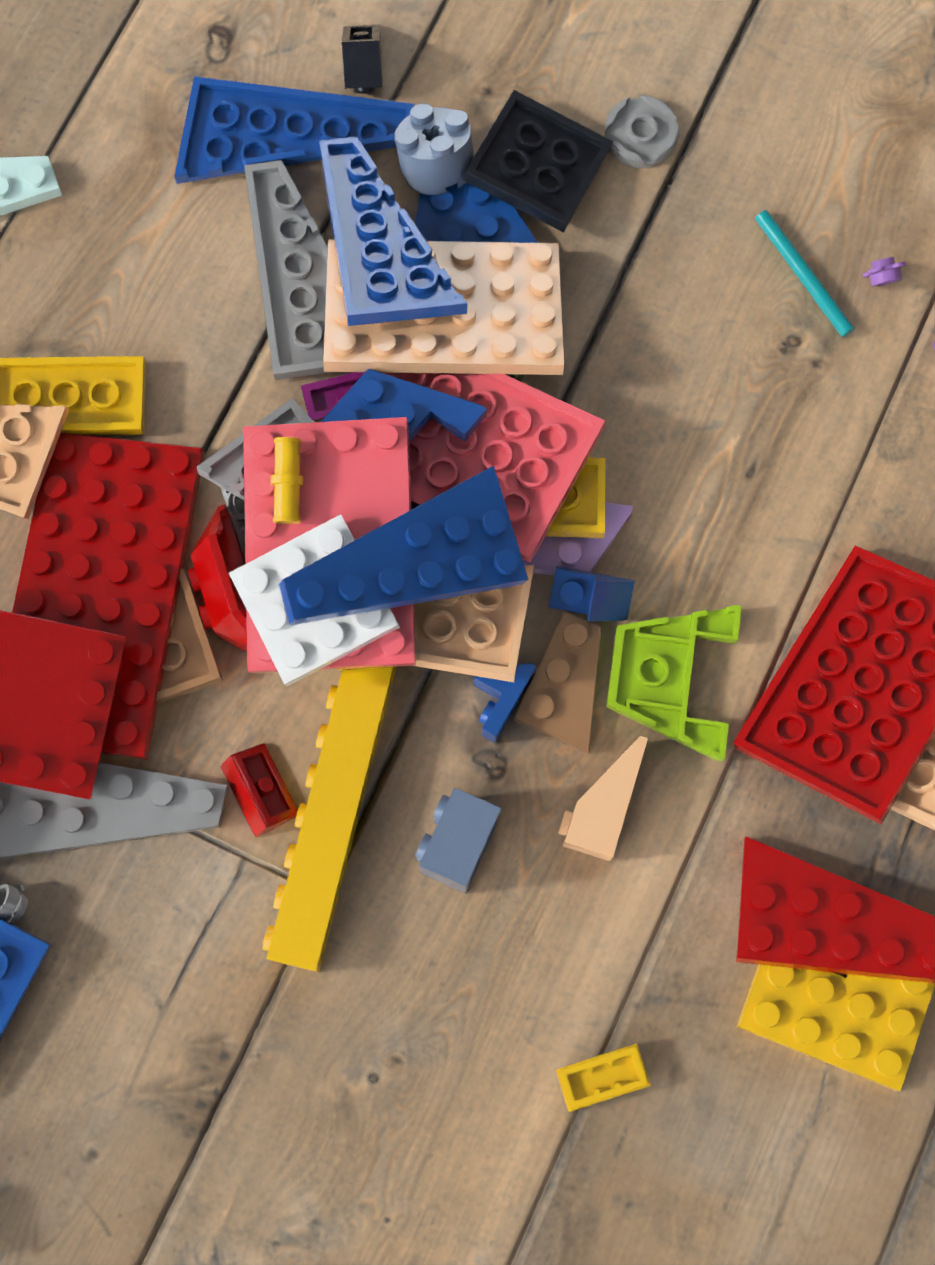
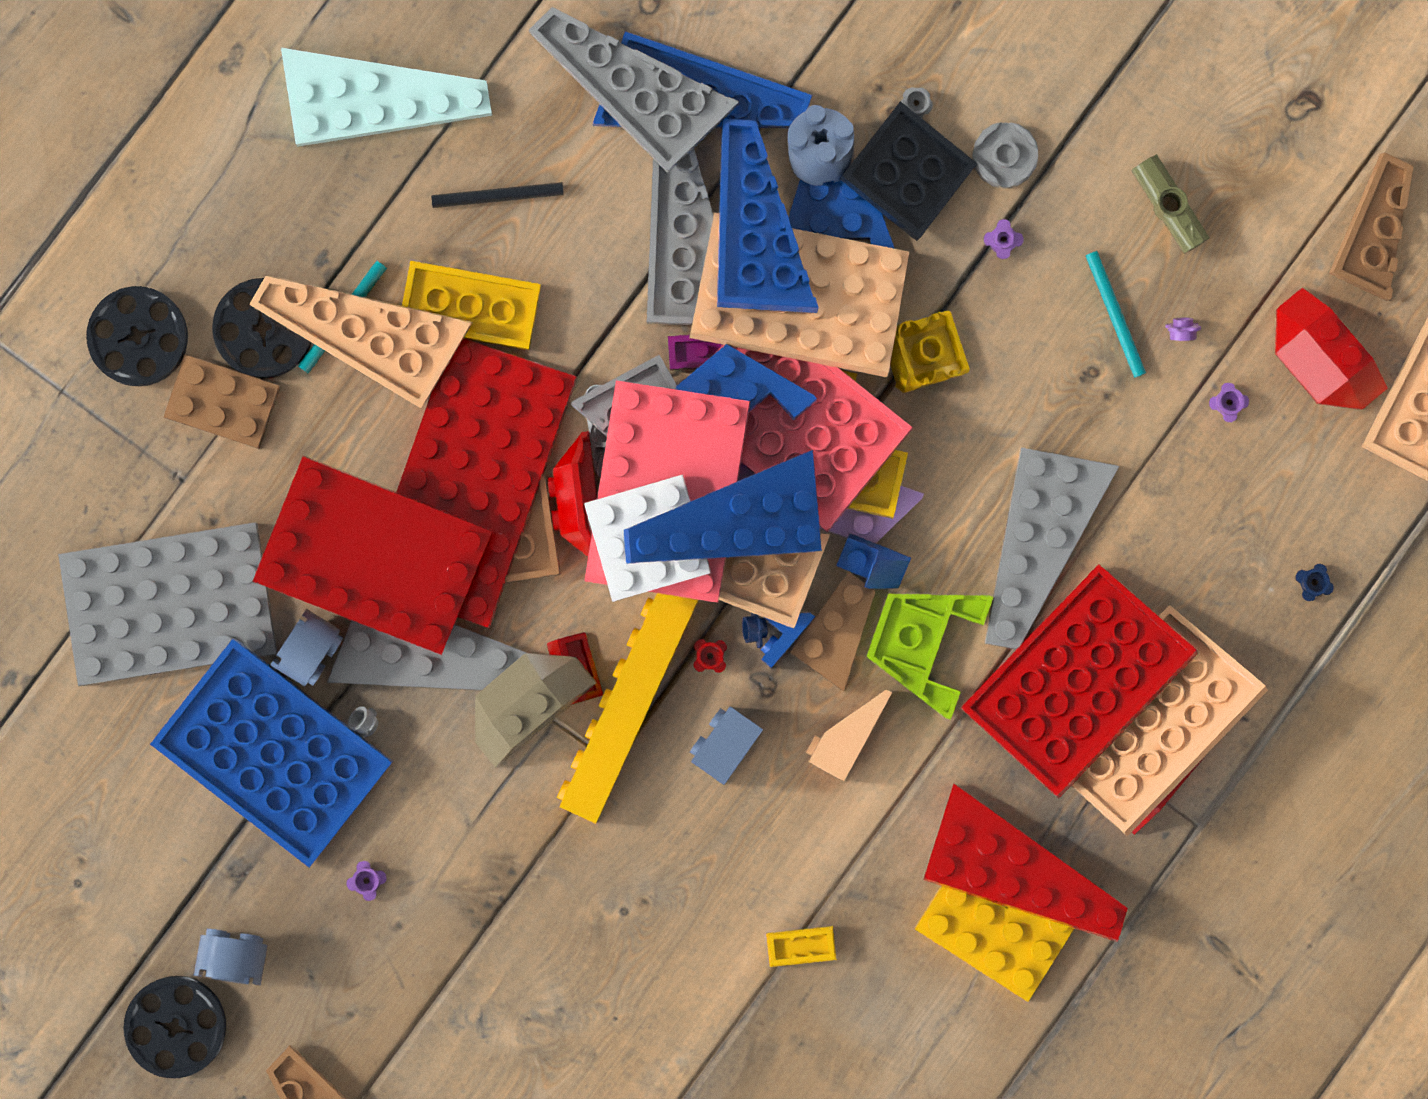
camera: 10 degrees right, 10 degrees up
(29, 1106) = (367, 890): none -> medium lavender plate
(80, 274) = (497, 195): none -> black bar
(204, 838) = (526, 701): none -> dark tan wedge
(220, 130) = (646, 97): none -> light grey wing
(287, 480) = (643, 436): yellow pin -> none
(362, 58) = (775, 38): black slope -> none
(411, 733) = (717, 662): none -> red plate
(466, 697) = (754, 629): none -> dark blue plate
(534, 86) = (920, 95): none -> light grey plate
(602, 350) = (927, 352): none -> yellow slope
(655, 225) = (1003, 248): none -> medium lavender plate
(780, 513) = (1045, 519): none -> light grey wing
(822, 129) = (1158, 185): none -> olive piece

